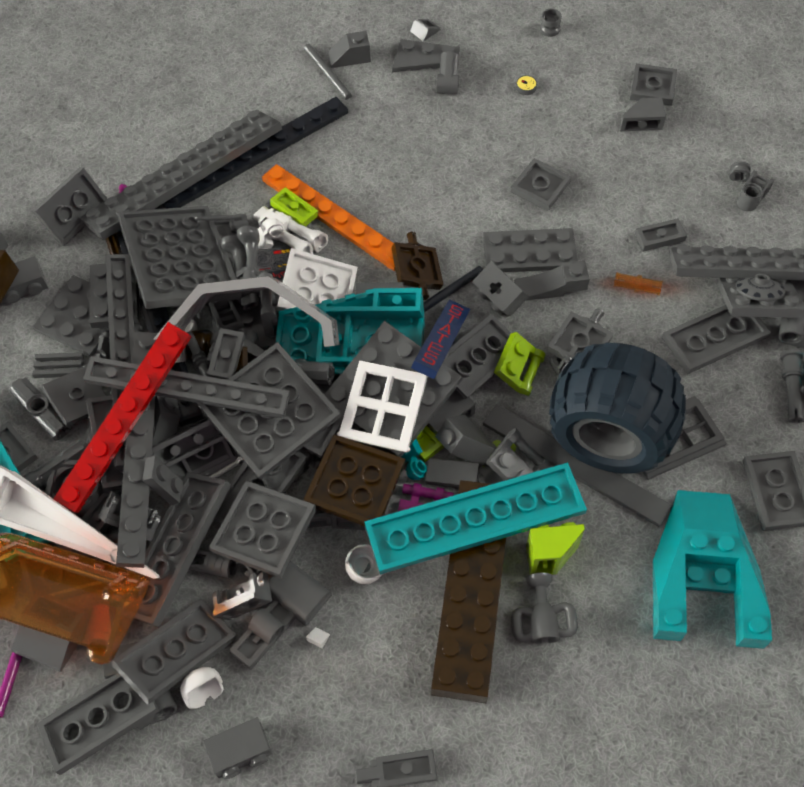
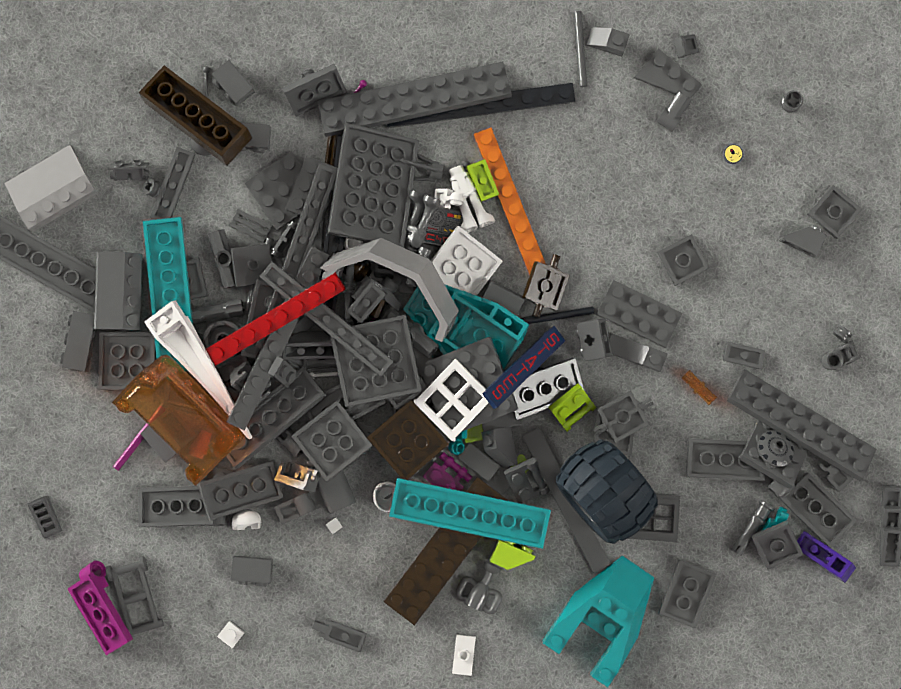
camera: 30 degrees right, 25 degrees up
(571, 708) = (463, 654): none -> white plate

